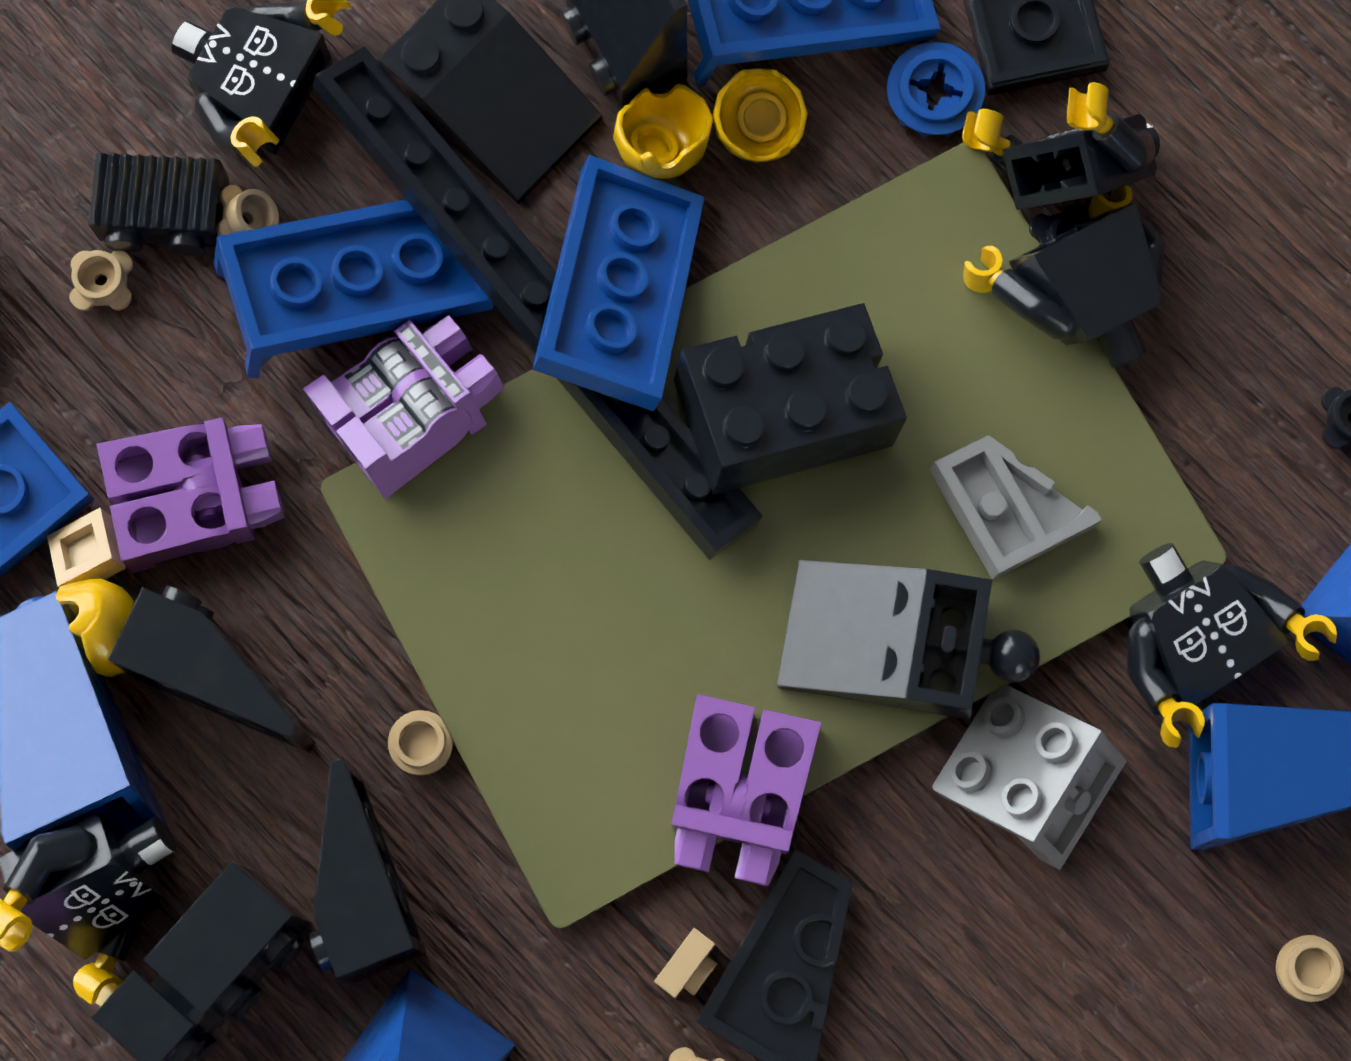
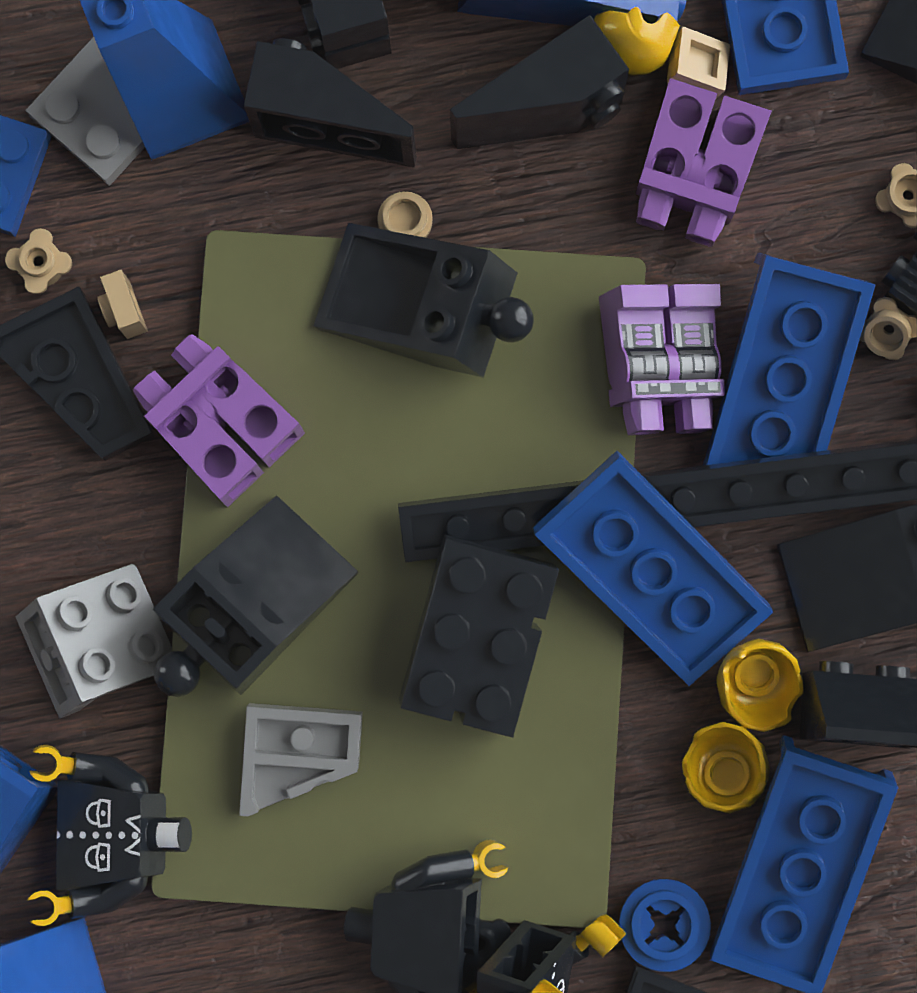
camera: 125 degrees right, 5 degrees up
(497, 677) = (422, 299): none -> black slope

